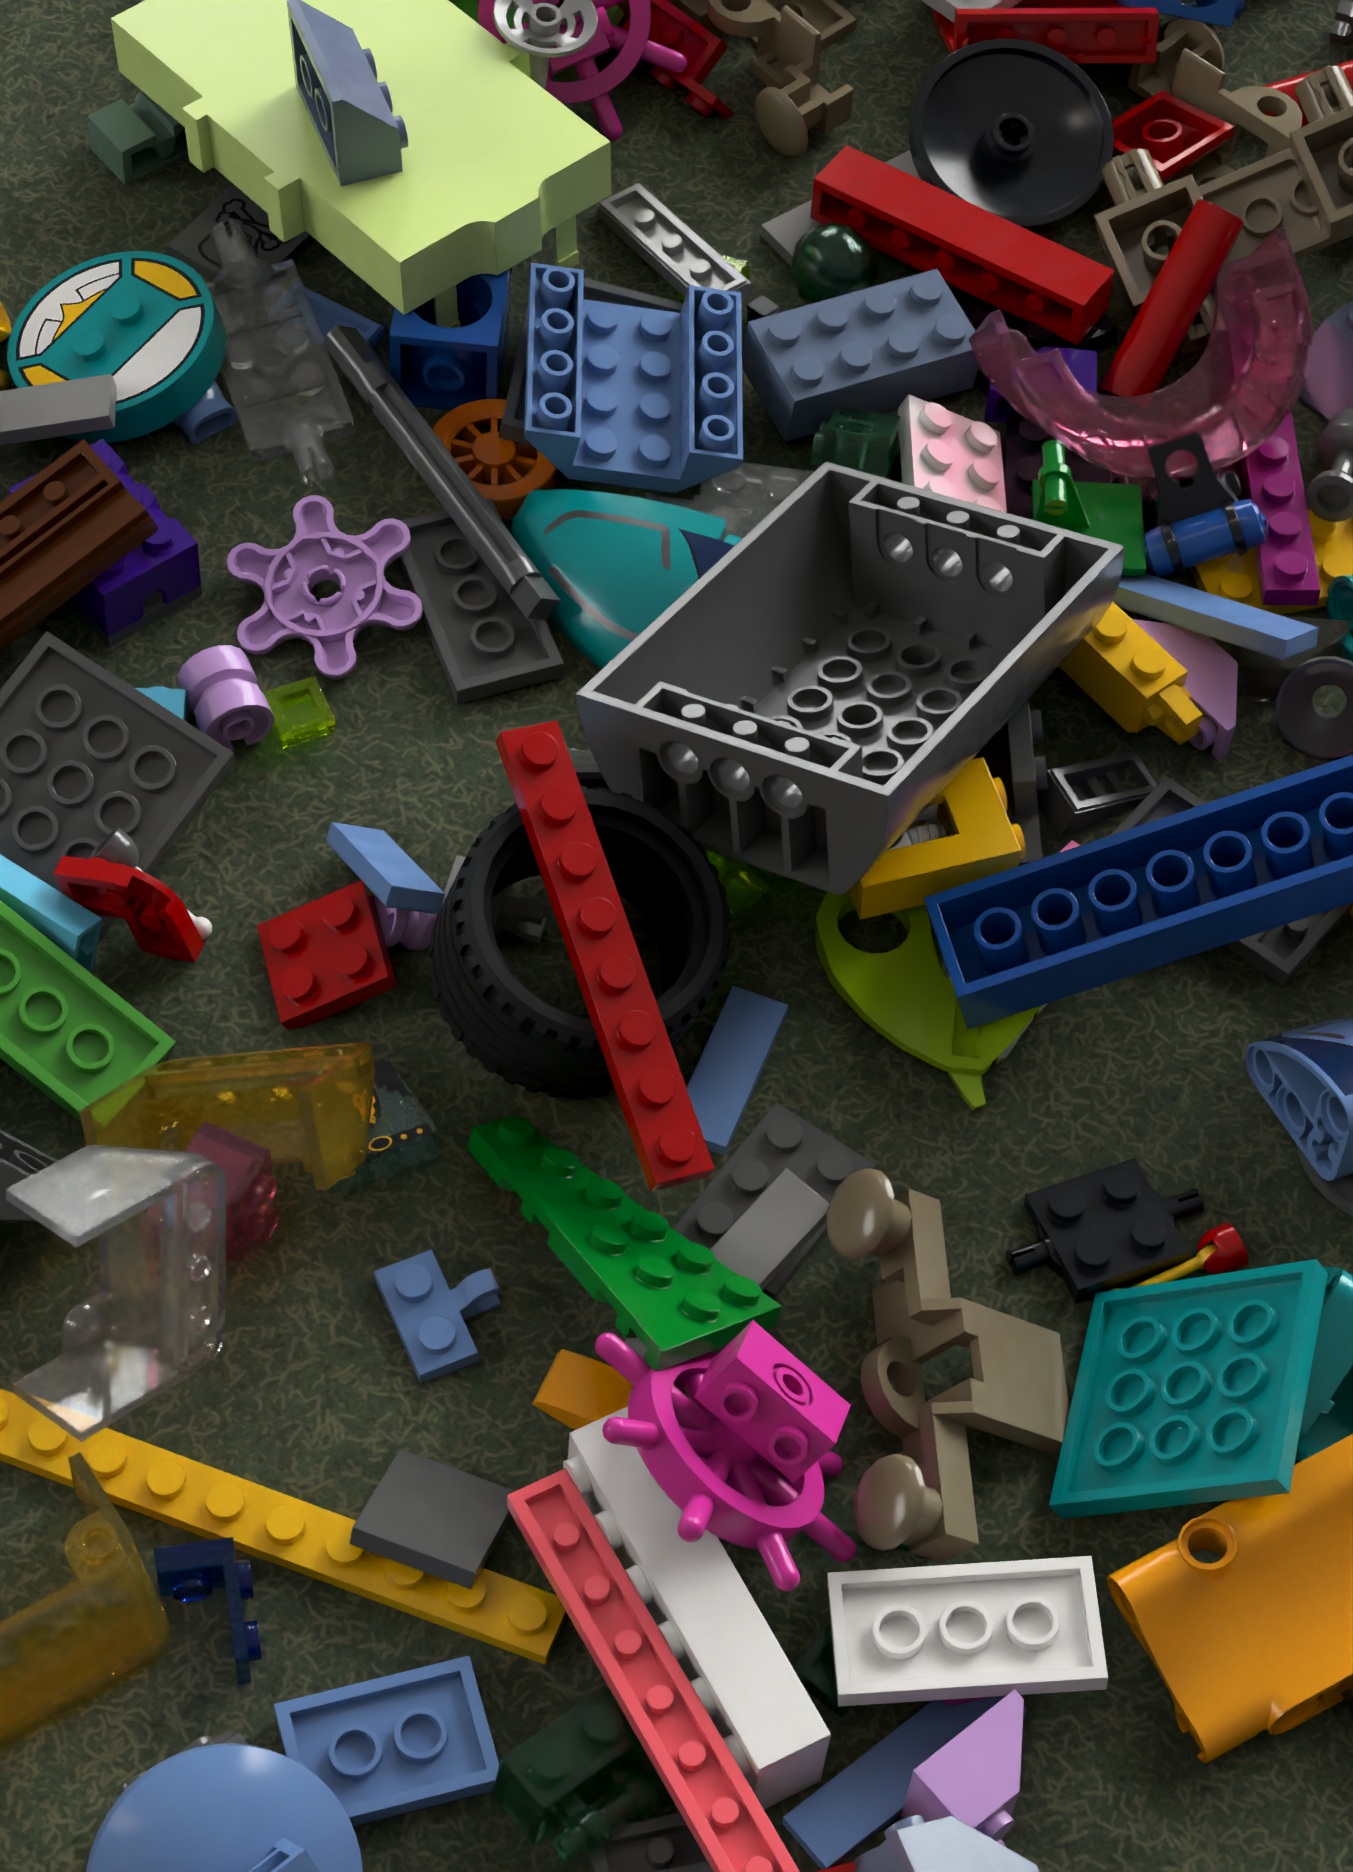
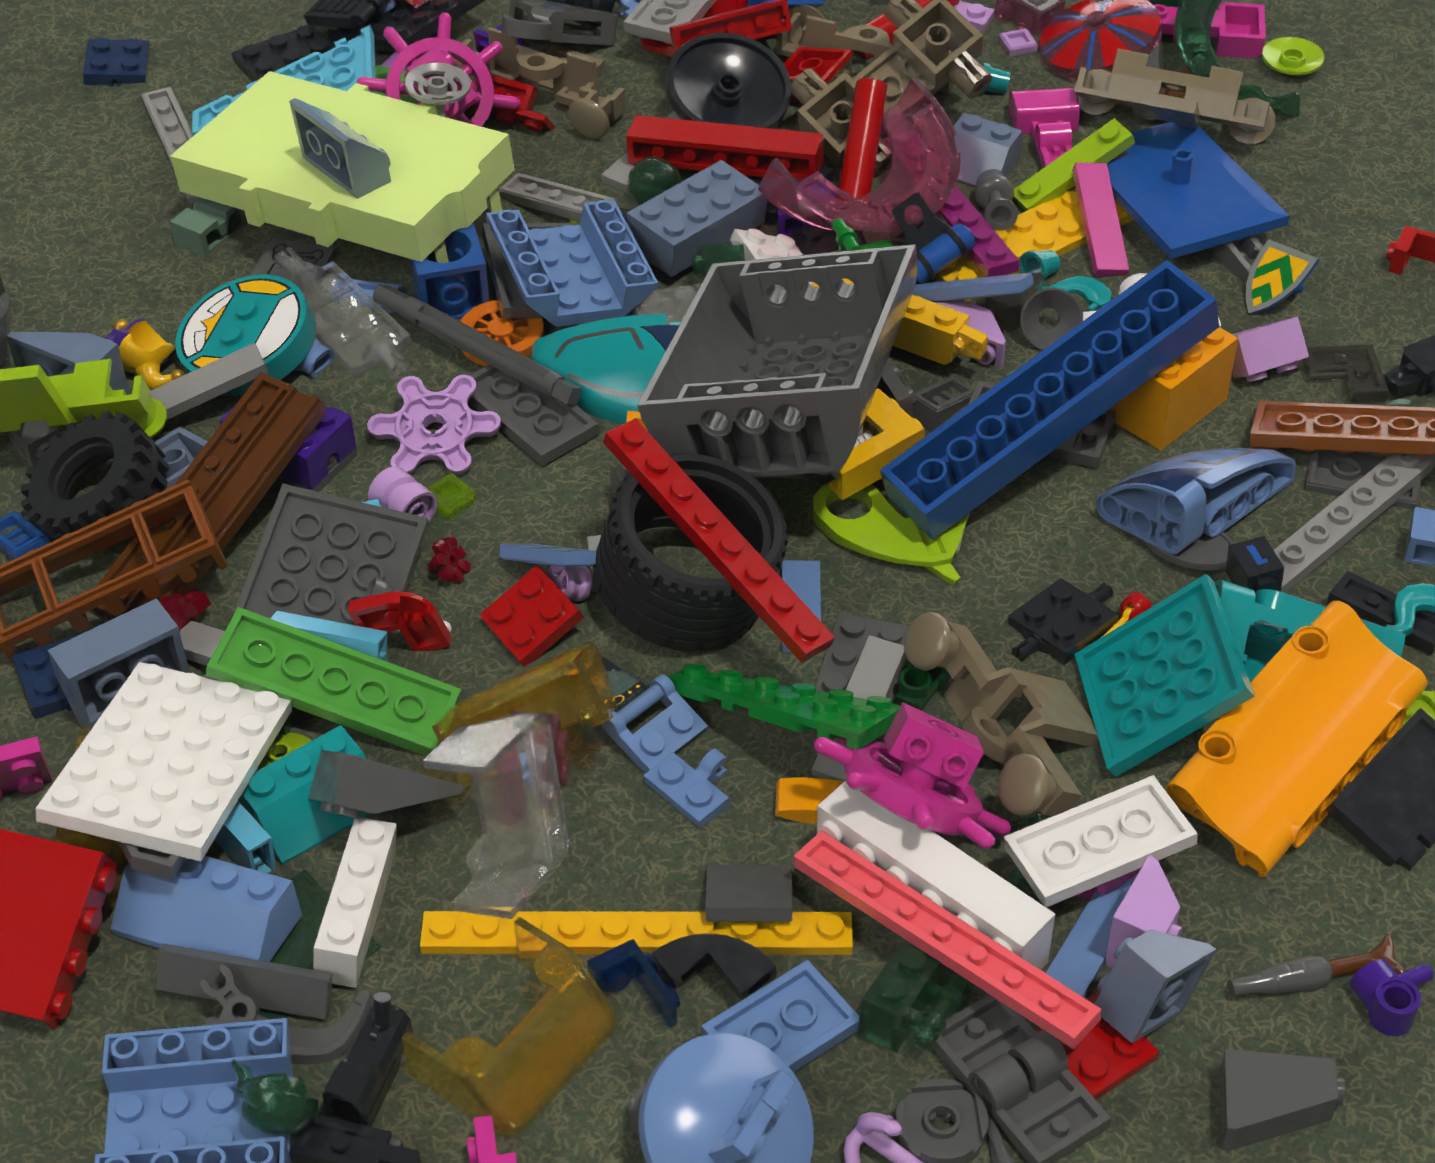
camera: 15 degrees left, 10 degrees down
(251, 823) = (449, 560): none -> dark red plant
(363, 1626) = (736, 961): none -> black brick
(431, 1215) = (663, 734): none -> medium blue plate
(841, 1273) = (919, 686): none -> dark green plate

